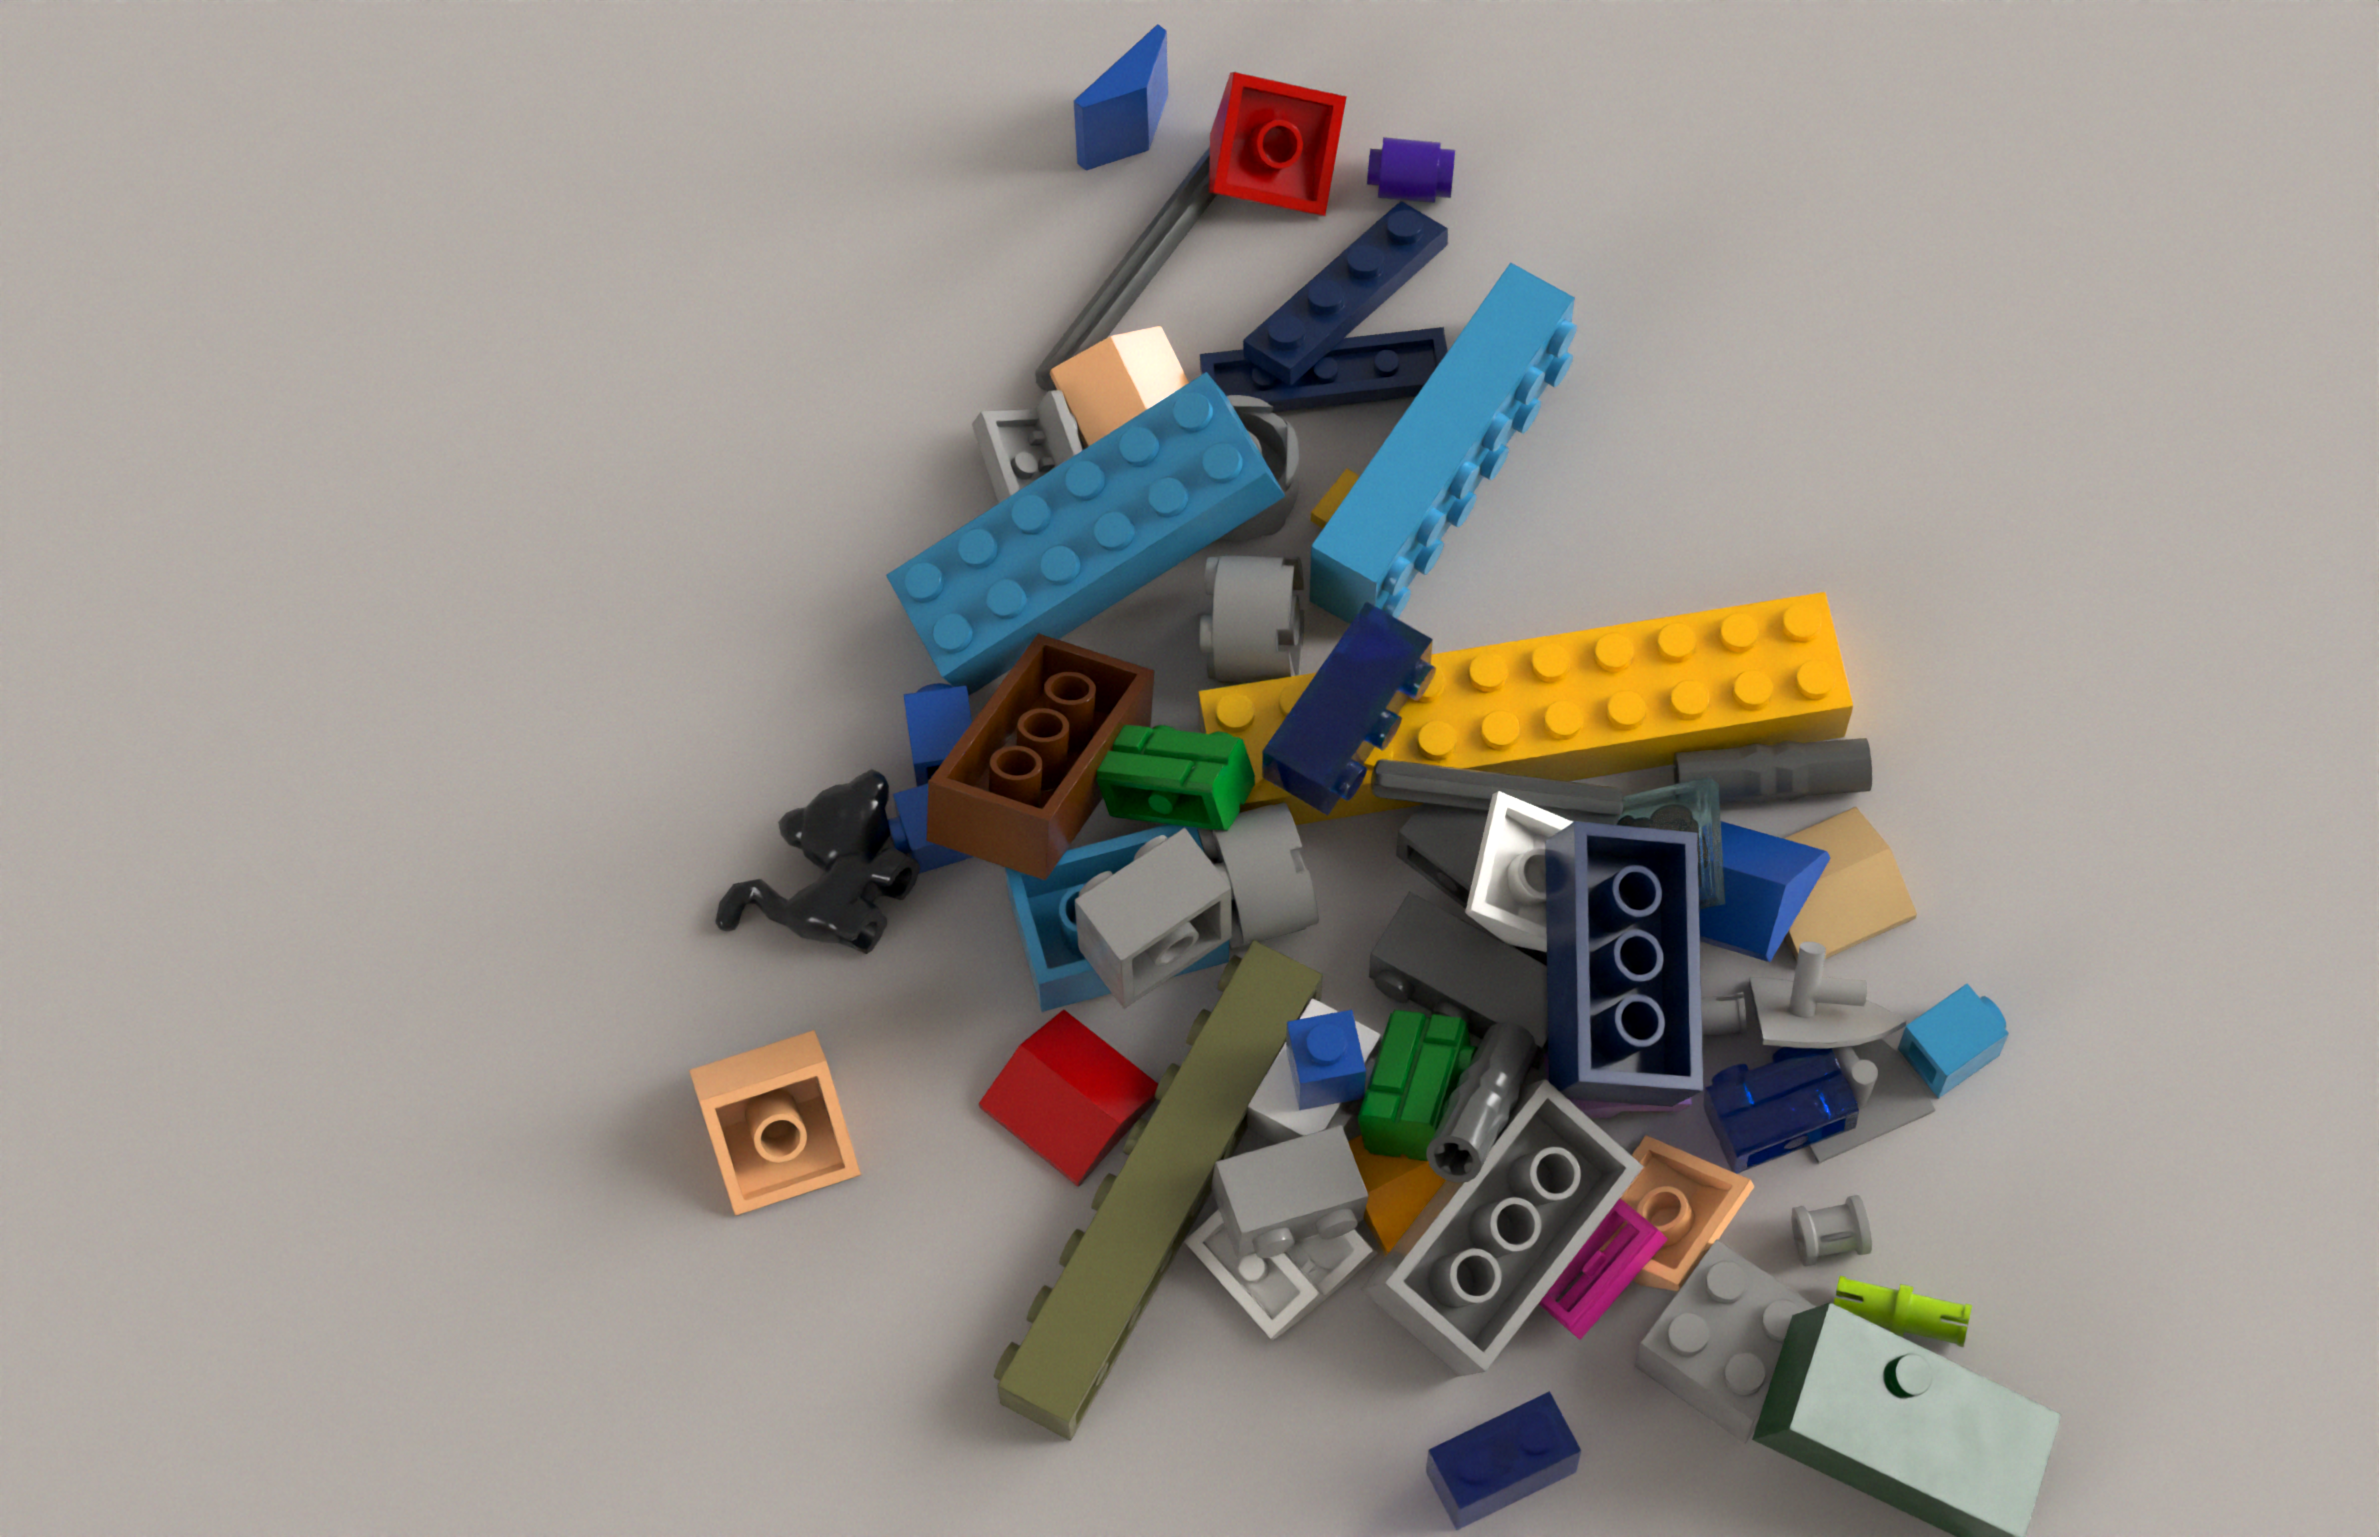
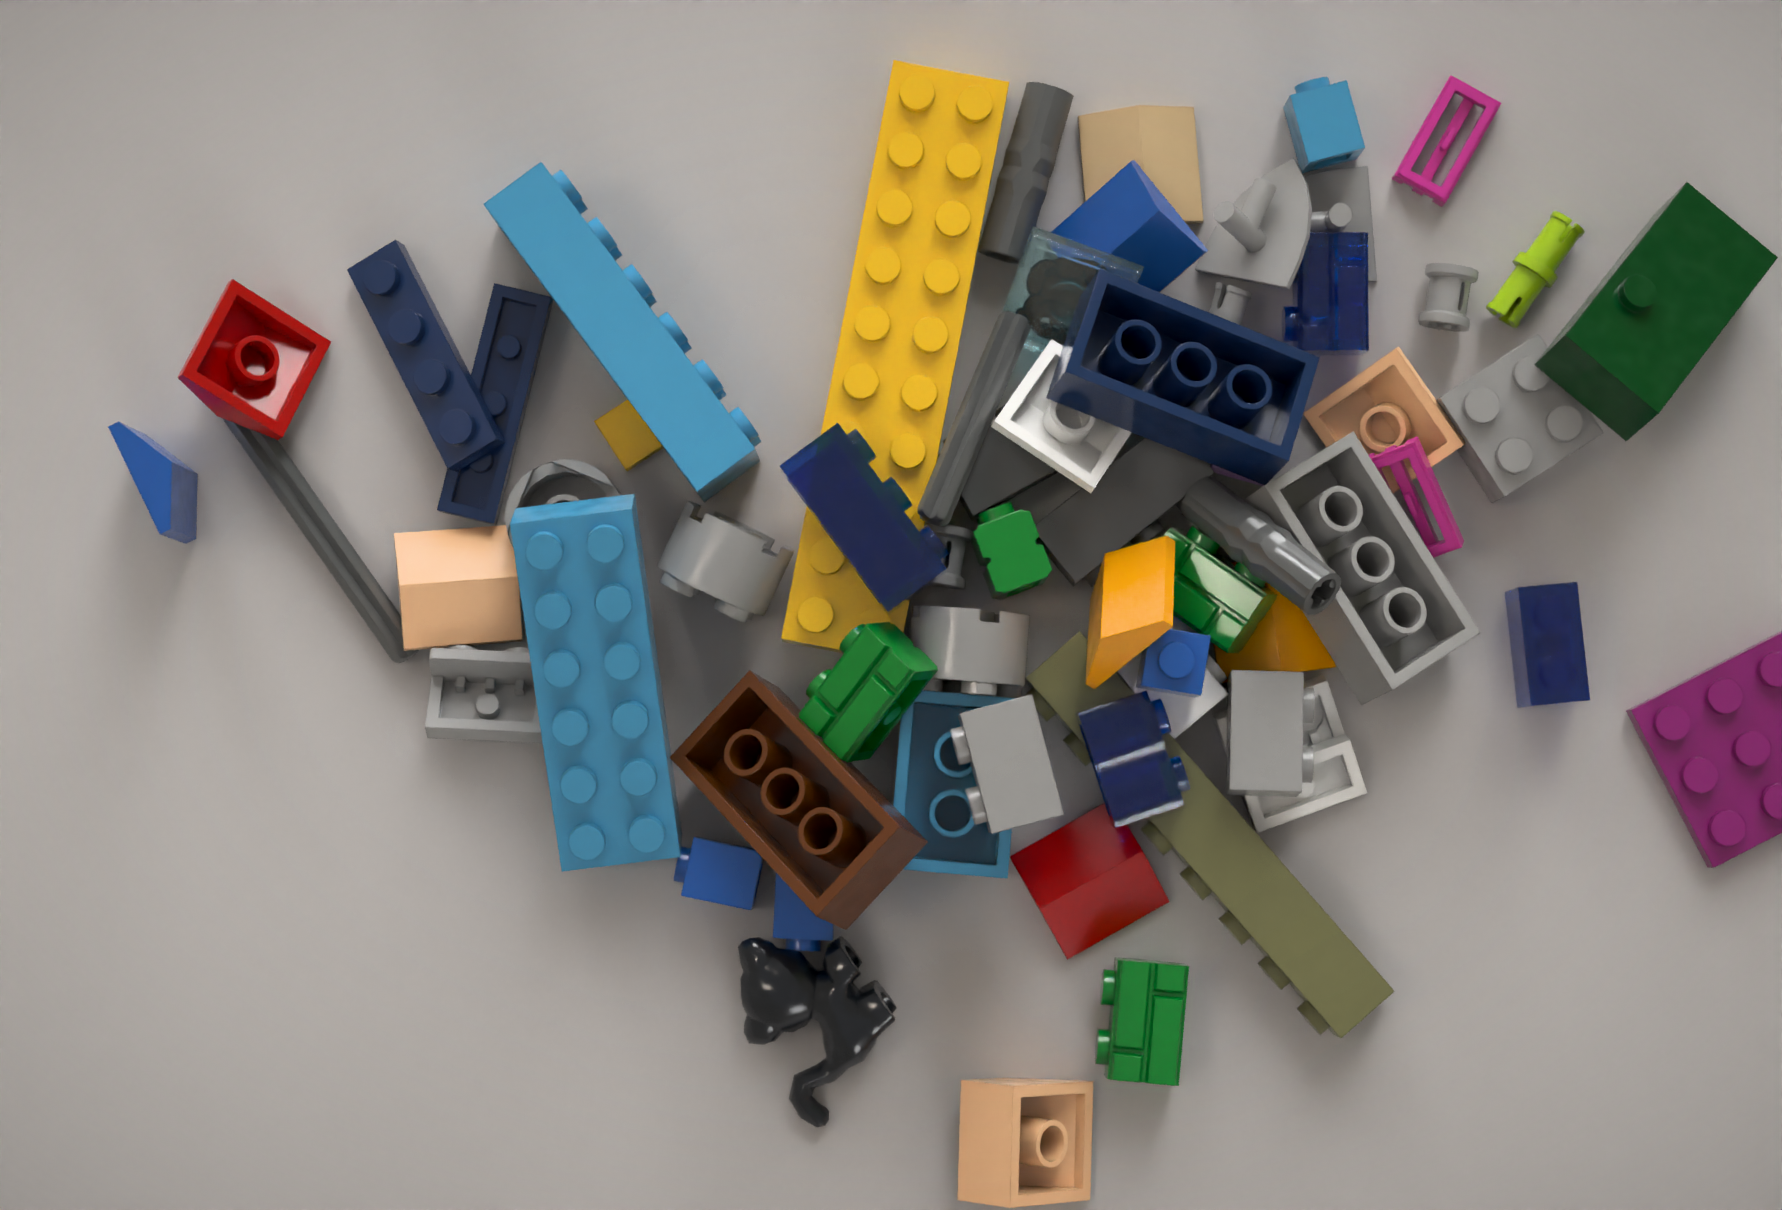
camera: 70 degrees left, 20 degrees up
(942, 1193) = (1144, 1021): none -> green brick
(1209, 1057) = (1132, 758): none -> clear blue brick
(1347, 831) = (954, 541): none -> light grey bush
(1362, 988) = (1129, 606): none -> light orange slope
(1372, 877) = (1009, 551): none -> green brick
(1411, 170) = (321, 247): dark purple brick -> none
(1992, 1200) = (1422, 183): none -> dark pink tile

